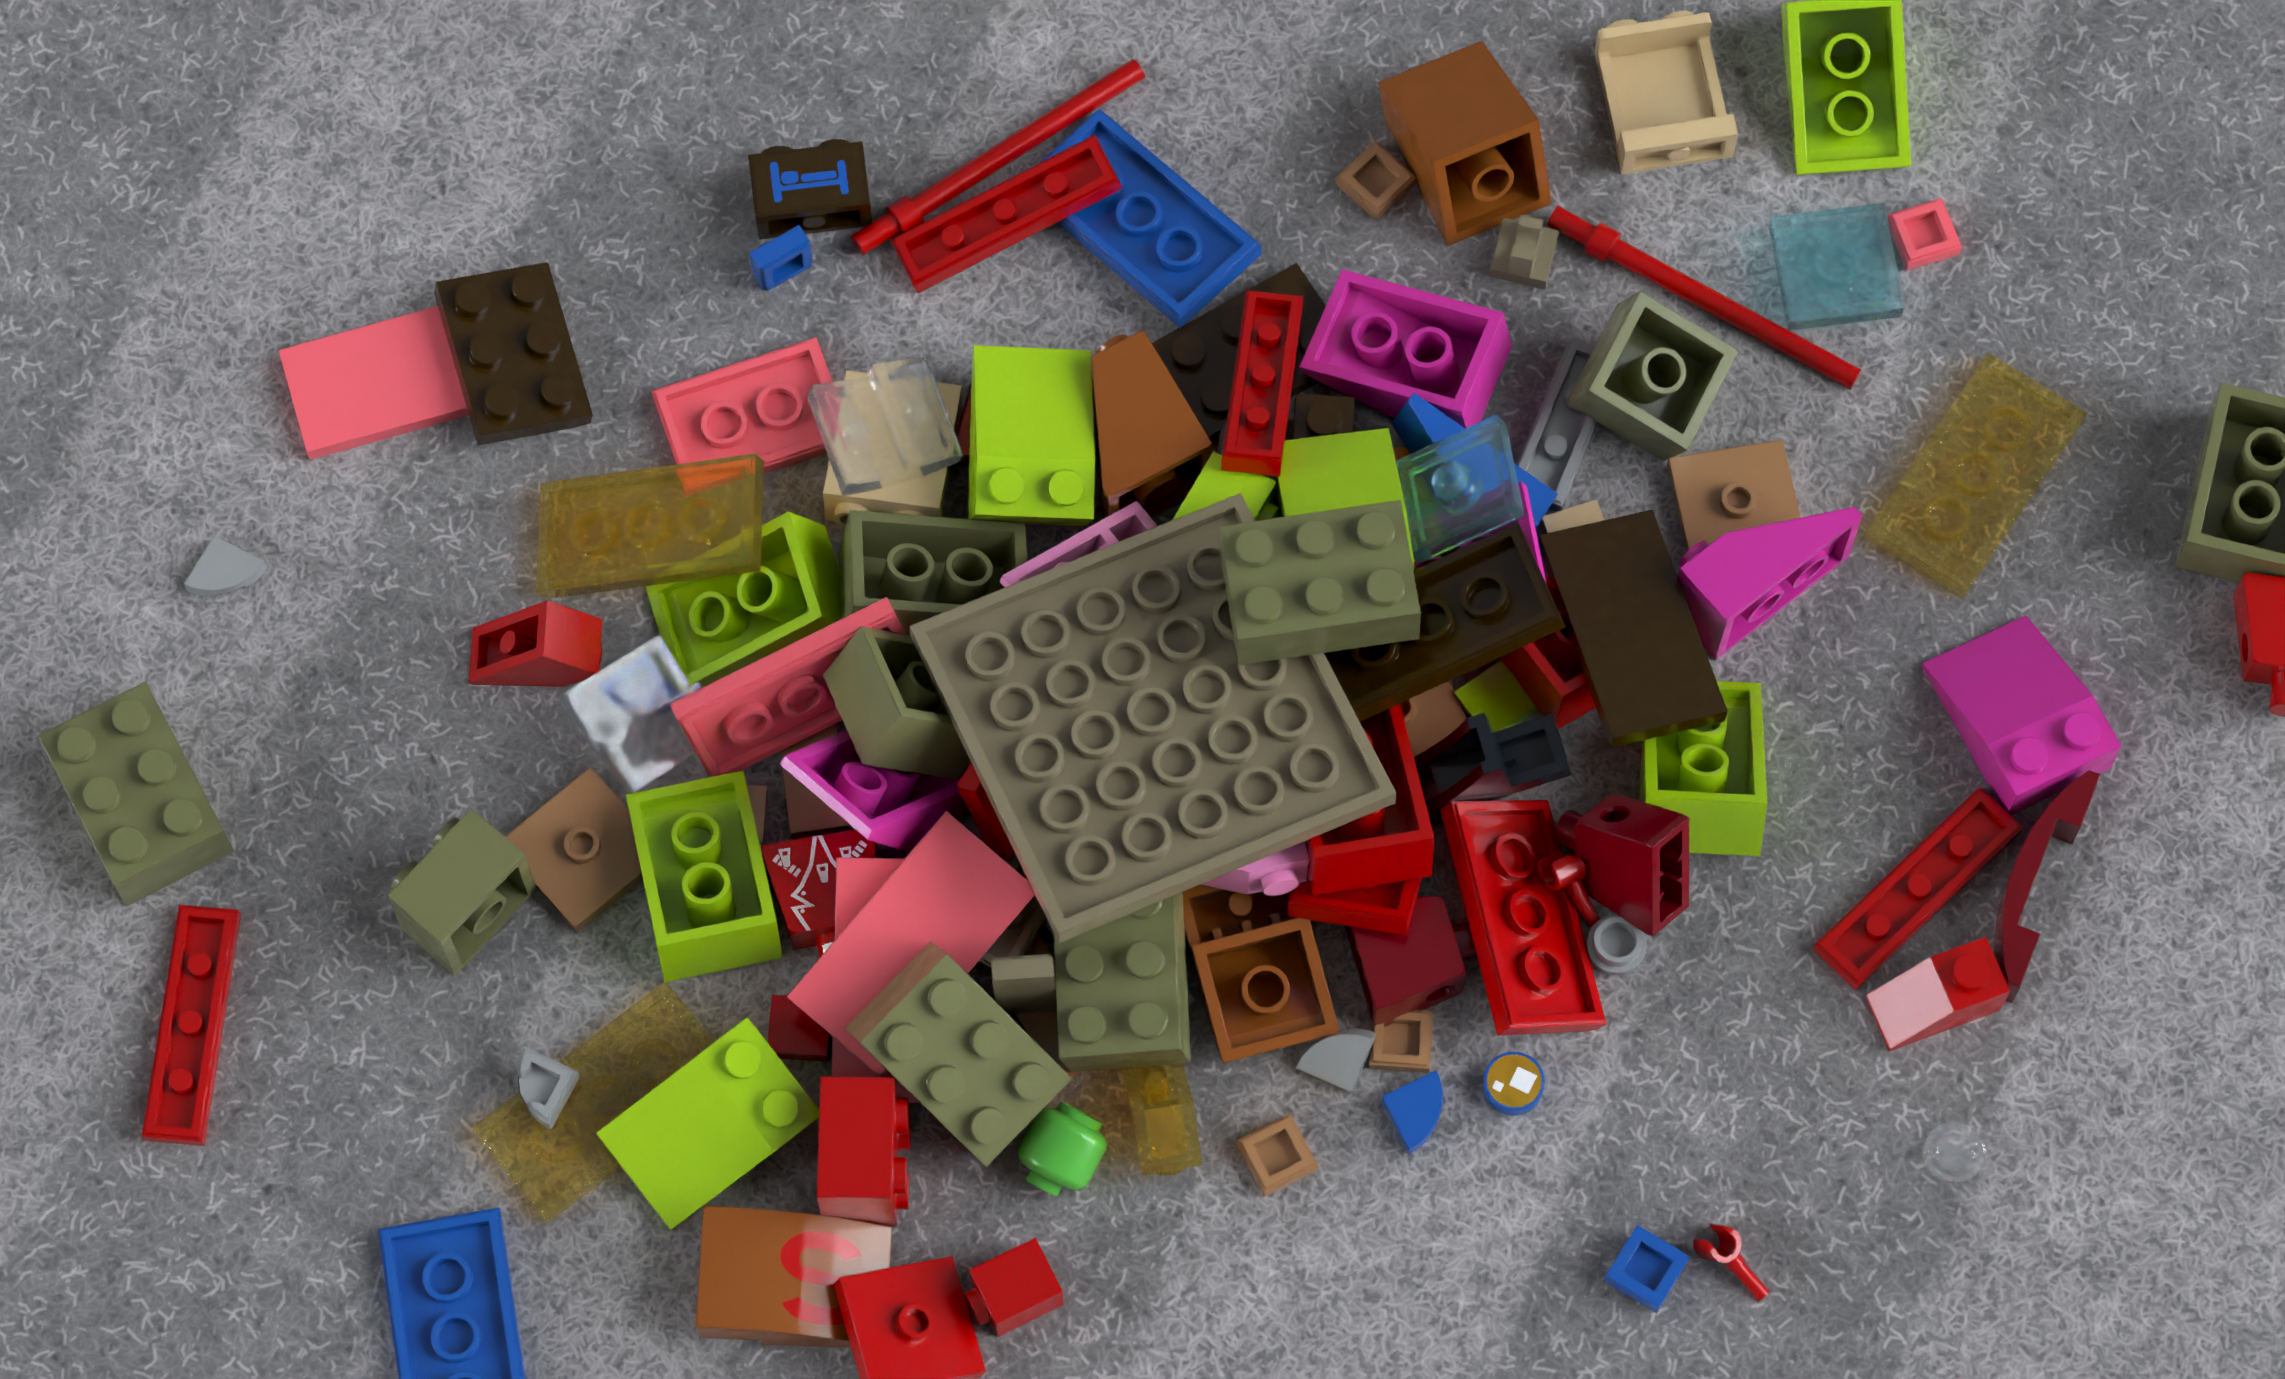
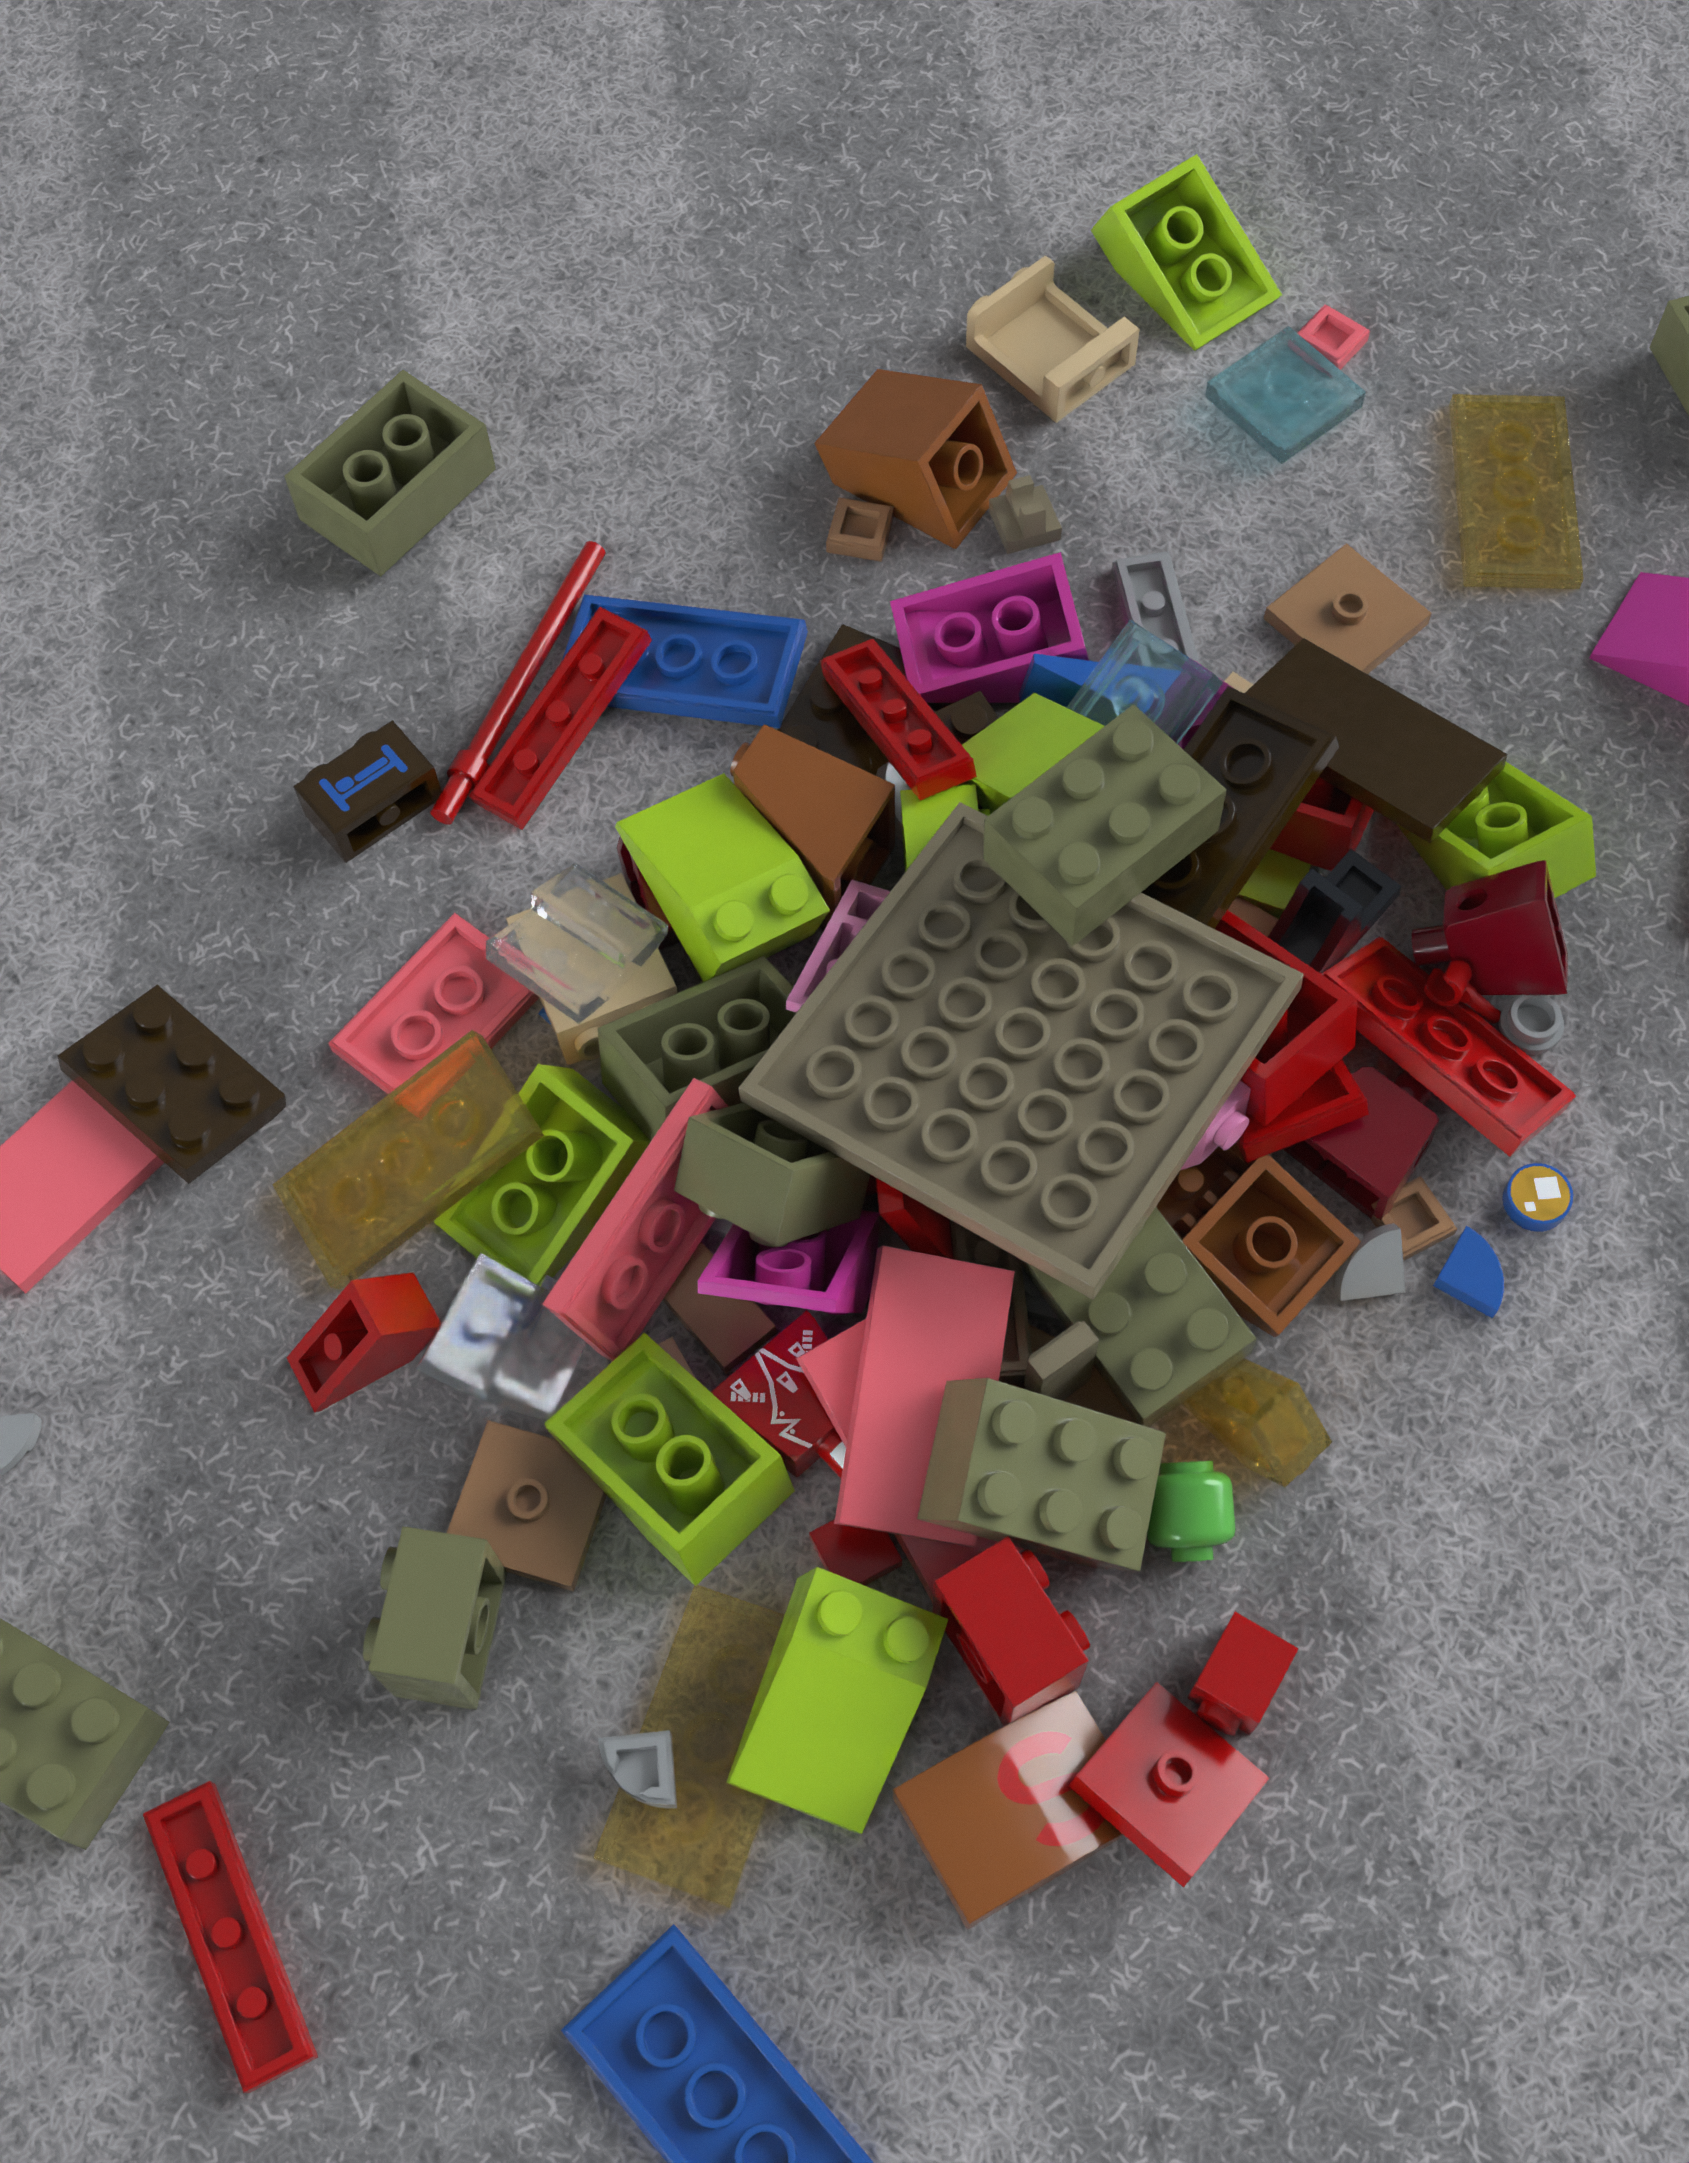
camera: 30 degrees left, 5 degrees down
(781, 258) = (379, 862): blue tile -> none
(1277, 1155) = (1381, 1392): medium nougat tile -> none
(1605, 243) = (1086, 476): red bar -> none
(1652, 376) = (1213, 543): olive brick -> none
(1759, 571) = (1426, 630): dark pink slope -> none

